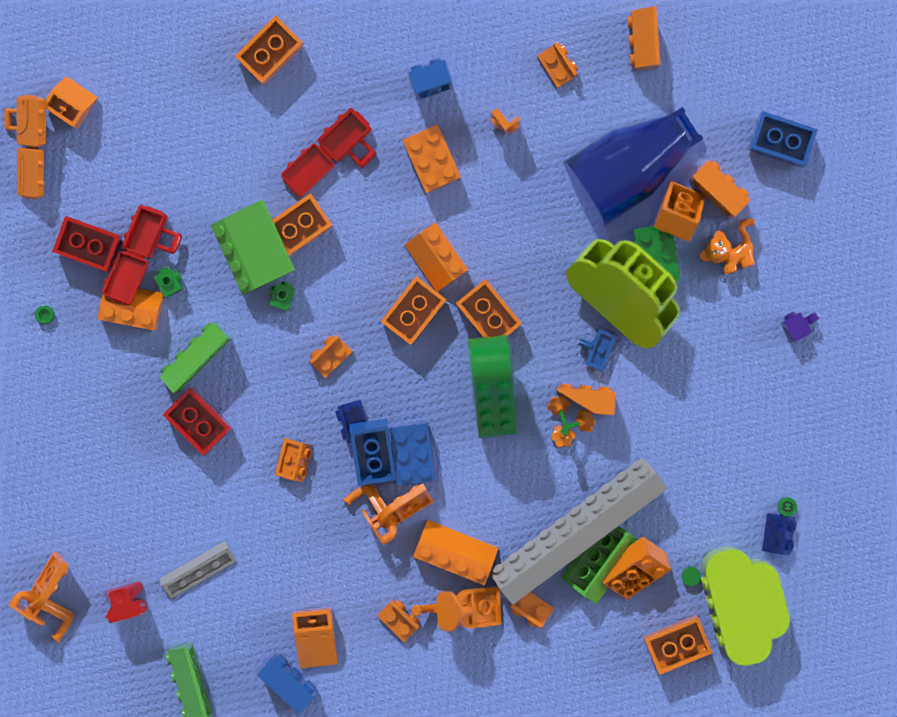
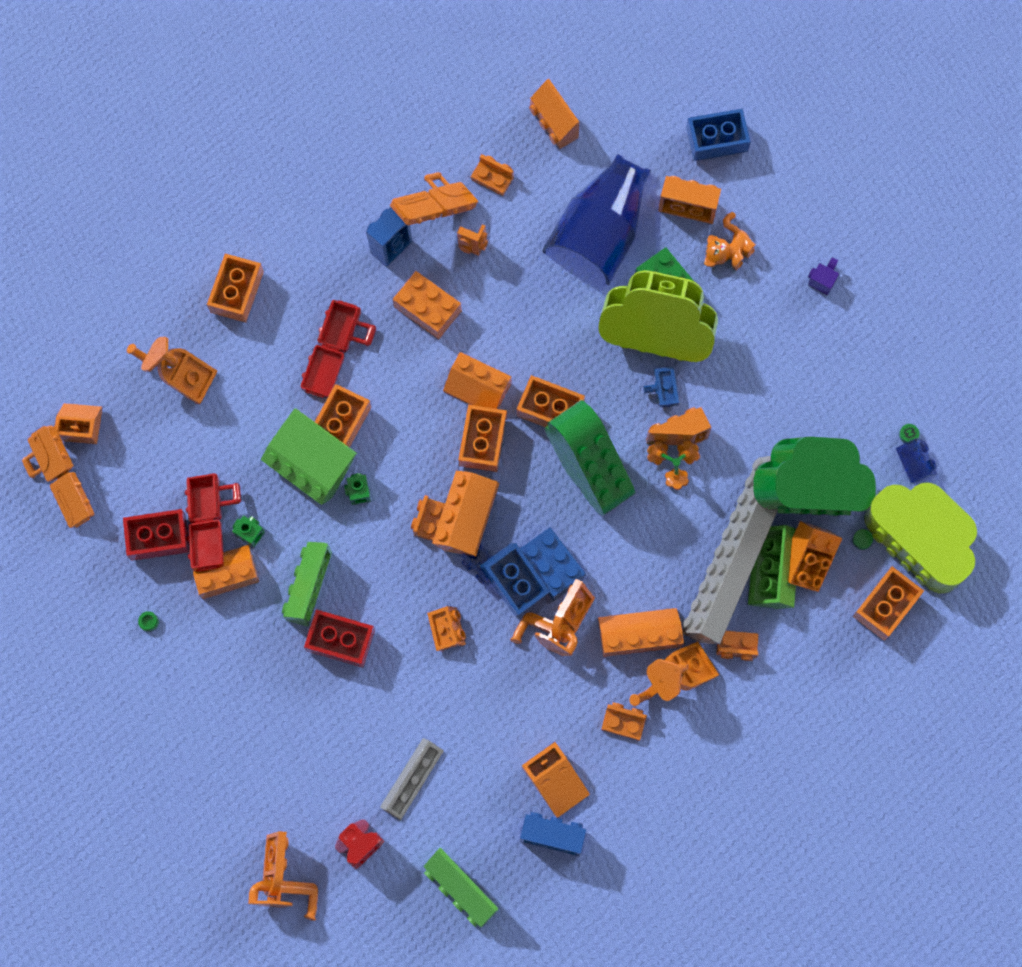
camera: 25 degrees left, 15 degrees down
(183, 110) = (187, 372): none -> orange plate
(362, 371) = (465, 513): none -> orange slope
(488, 71) = (430, 205): none -> orange piece
(674, 509) = (814, 478): none -> green brick
(680, 211) = (667, 232): orange brick -> none

